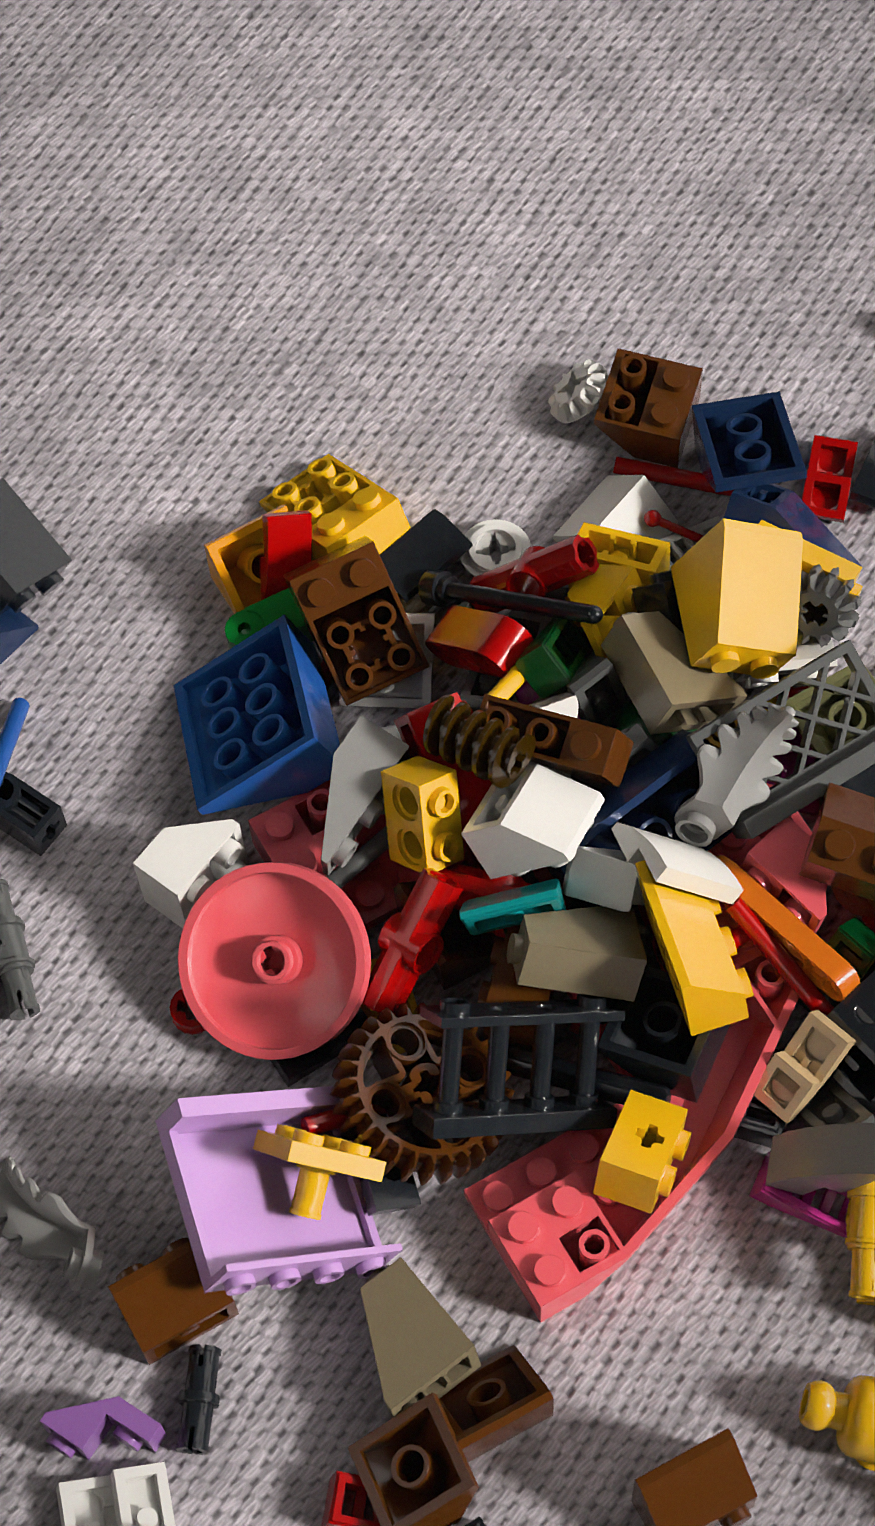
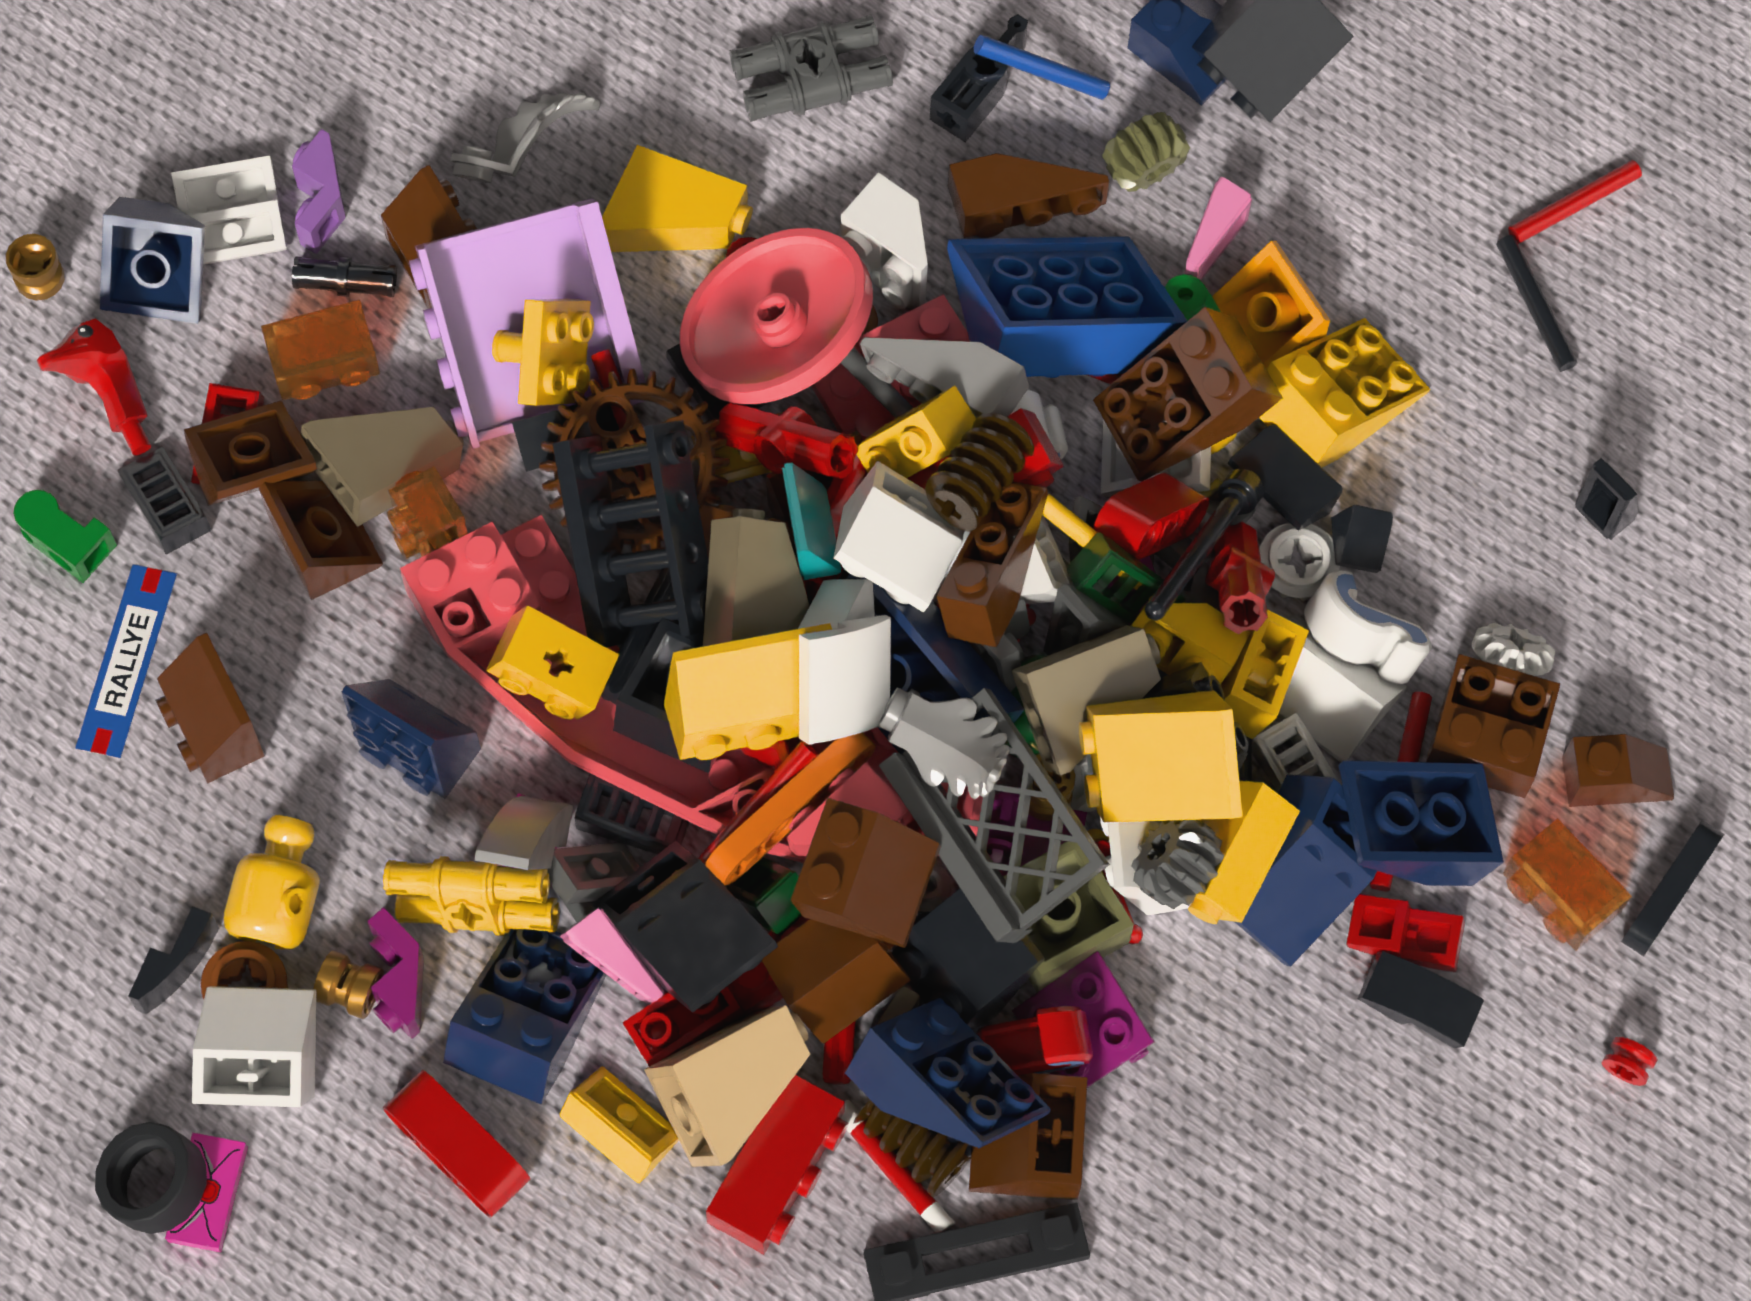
camera: 85 degrees right, 5 degrees up
(98, 659) = (1146, 151): none -> olive gear
(127, 776) = (1014, 191): none -> reddish brown slope
(131, 1075) = (673, 206): none -> yellow slope
(151, 342) = (1575, 201): none -> red bar
(170, 607) = (1221, 222): none -> bright pink slope
(248, 372) = (1536, 303): none -> black bar
(286, 547) = (1277, 322): red slope -> none
(291, 1410) = (321, 350): none -> clear orange brick
(443, 316) = (1607, 500): none -> black slope
(476, 502) = (1361, 537): none -> black slope
(486, 1285) = (424, 514): none -> clear orange brick
(569, 501) = (1362, 633): none -> white animal
(653, 519) = (1334, 722): red hinge -> none
(682, 328) = (1616, 771): none -> reddish brown slope
(711, 1285) = (410, 735): none -> dark blue slope
(778, 291) = (1672, 888): none -> black beam
(787, 356) = (1565, 885): none -> clear orange brick
(803, 1066) = (645, 836): tan slope -> none

